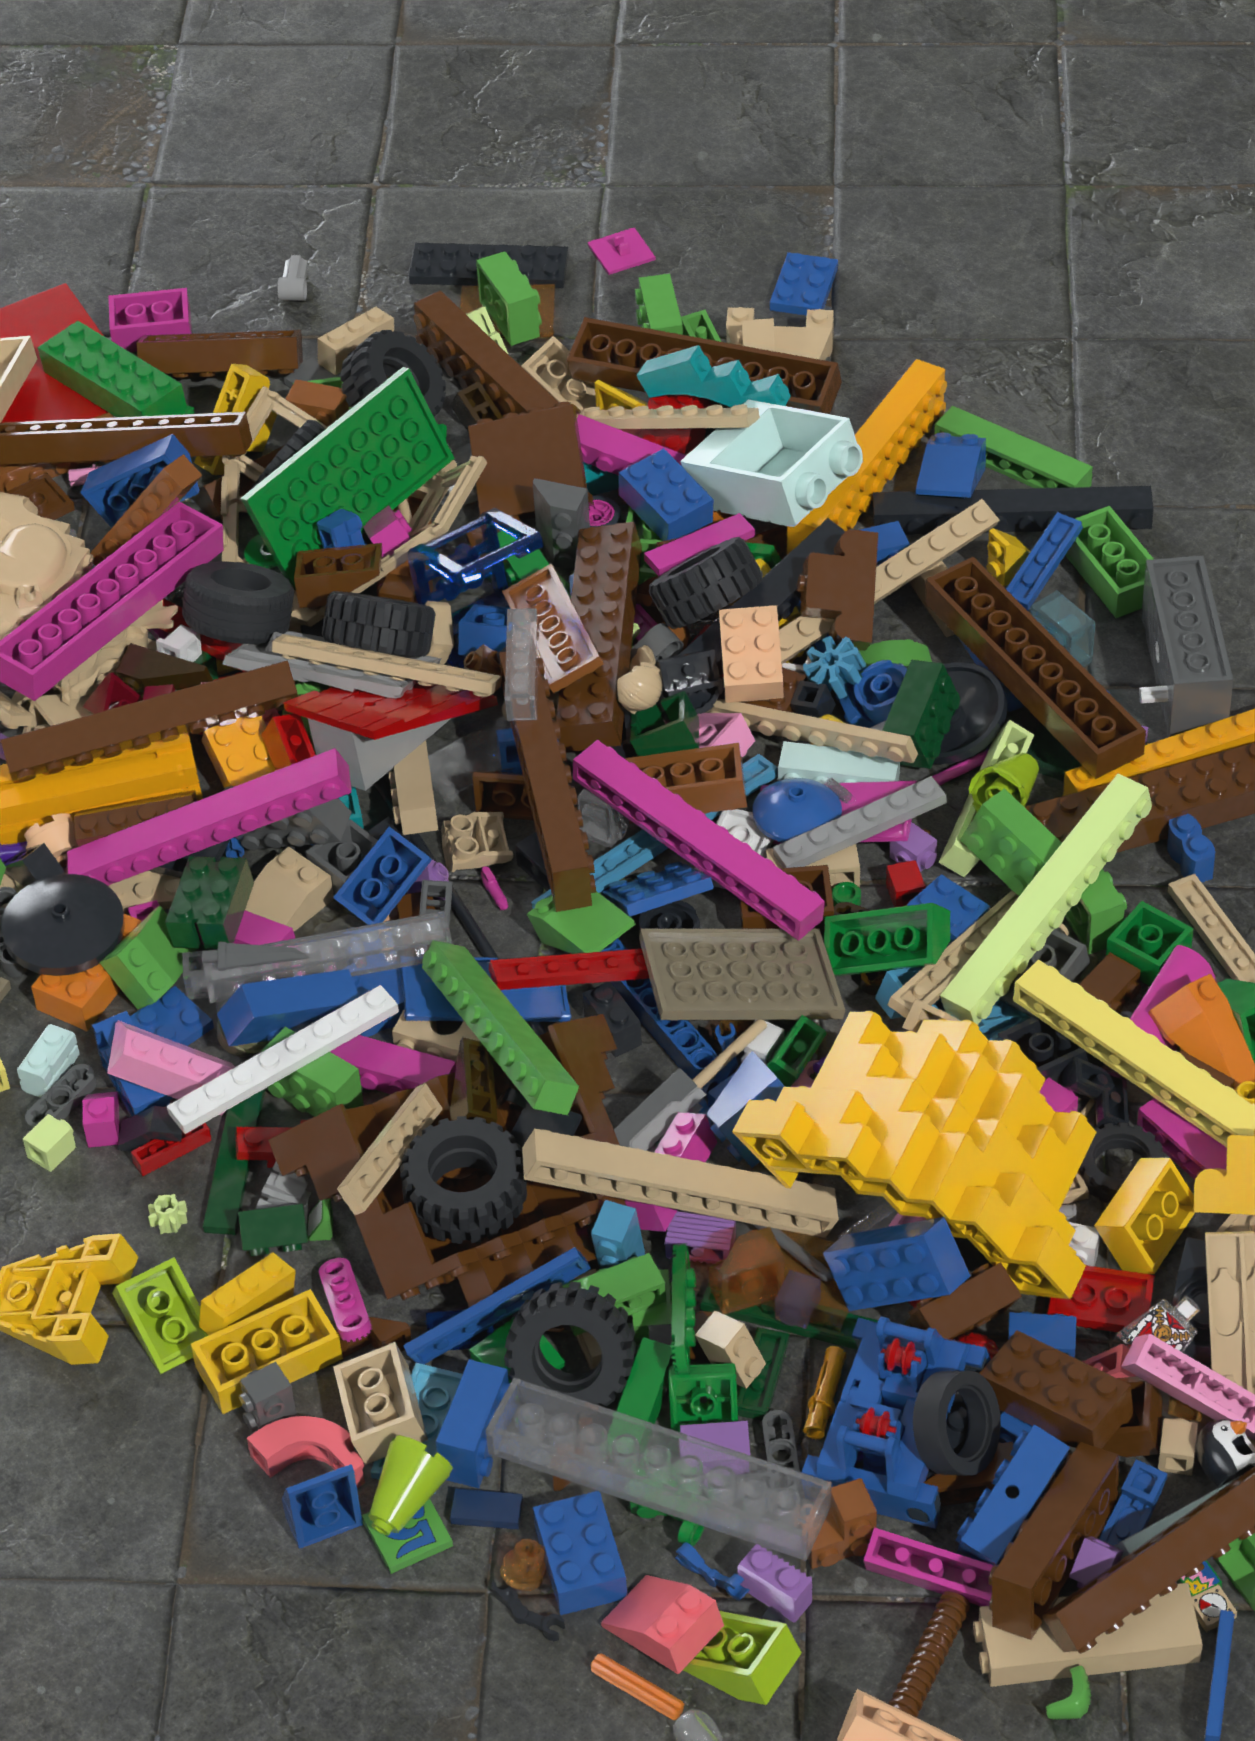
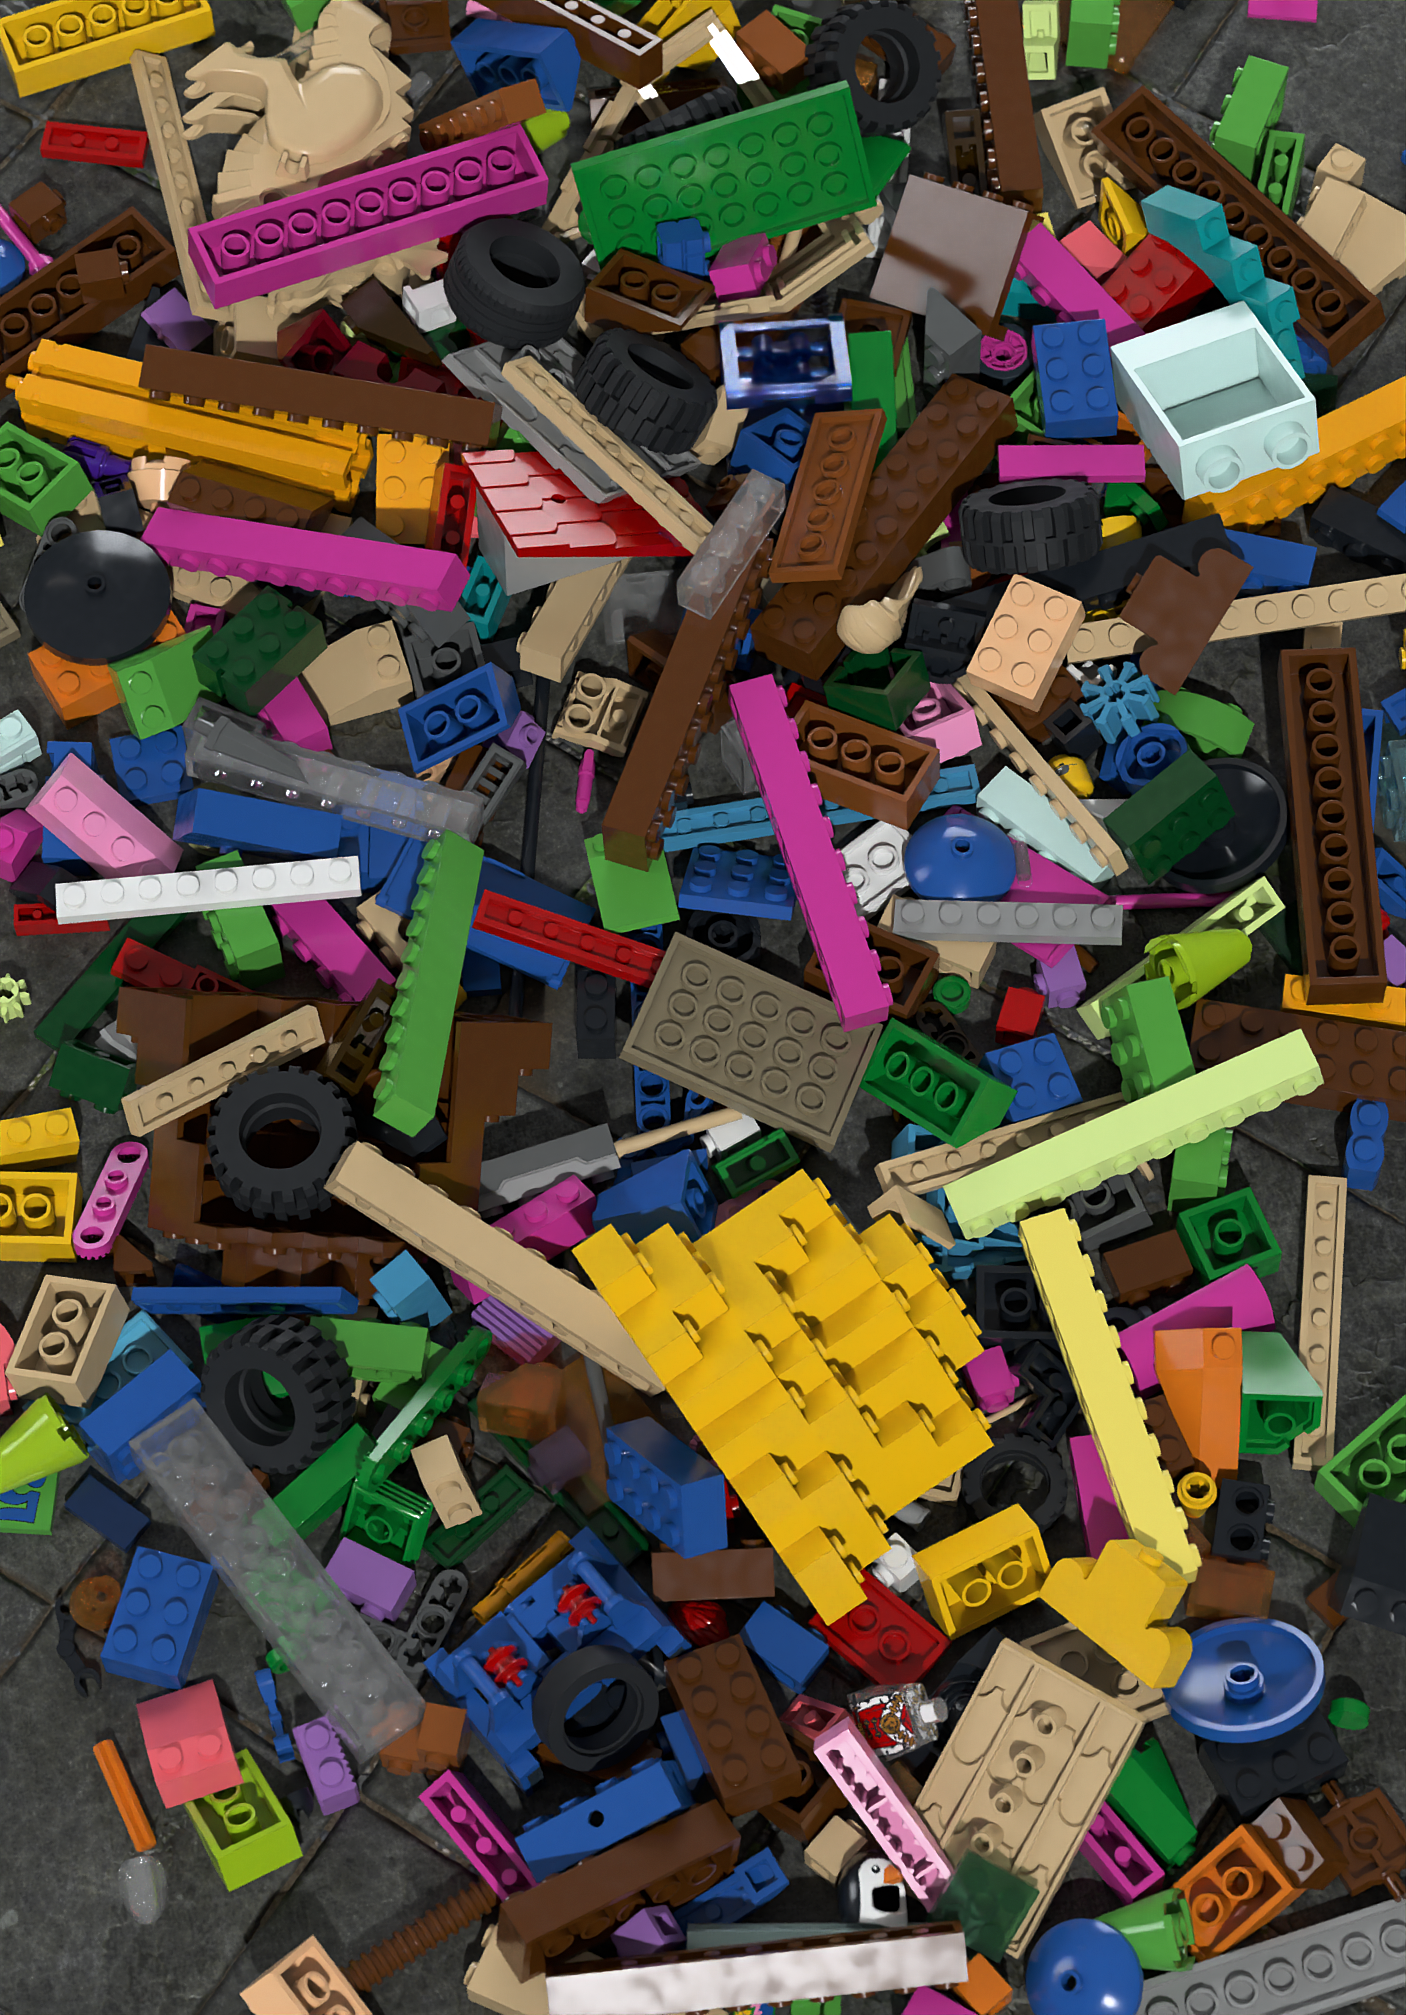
camera: 30 degrees right, 15 degrees up
(666, 417) = (1132, 273): tan plate -> none

